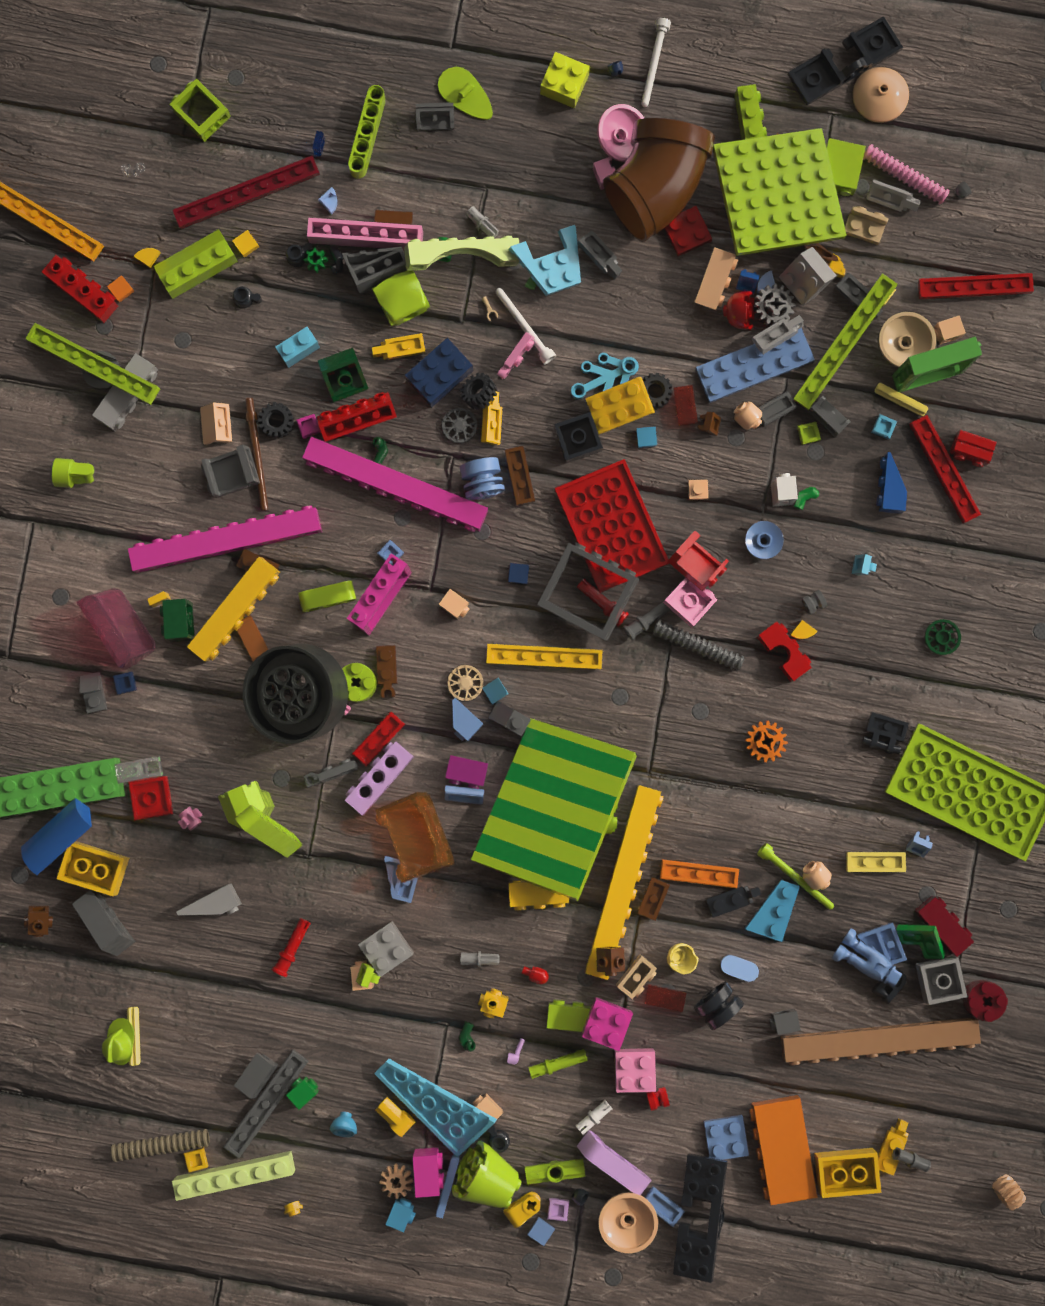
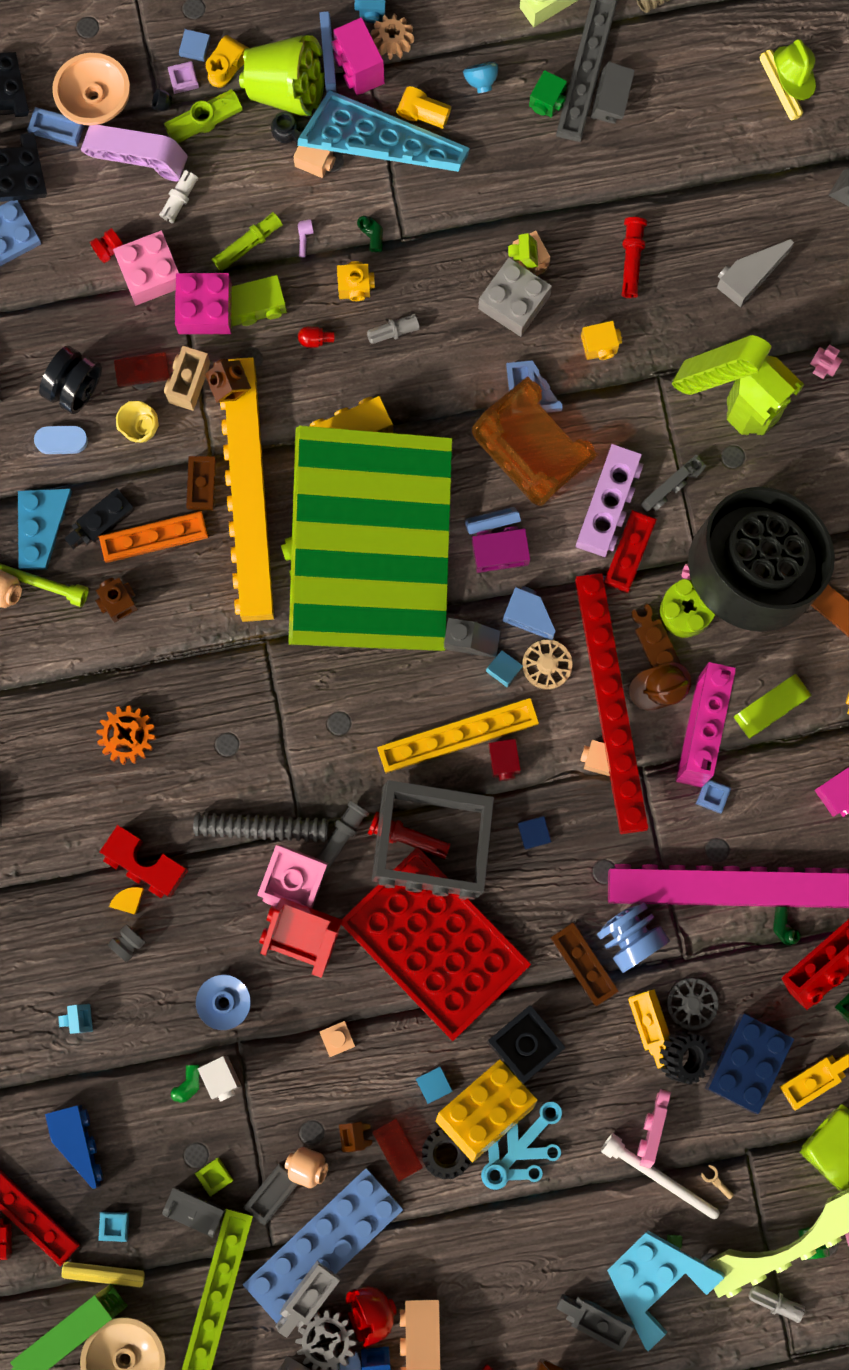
camera: 160 degrees right, 5 degrees down
(338, 893) = (601, 340): none -> yellow brick
(395, 637) = (660, 686): none -> reddish brown piece
(434, 638) = (611, 704): none -> red plate
(519, 628) = (504, 759): none -> dark red brick
(734, 834) = (118, 607): none -> reddish brown brick

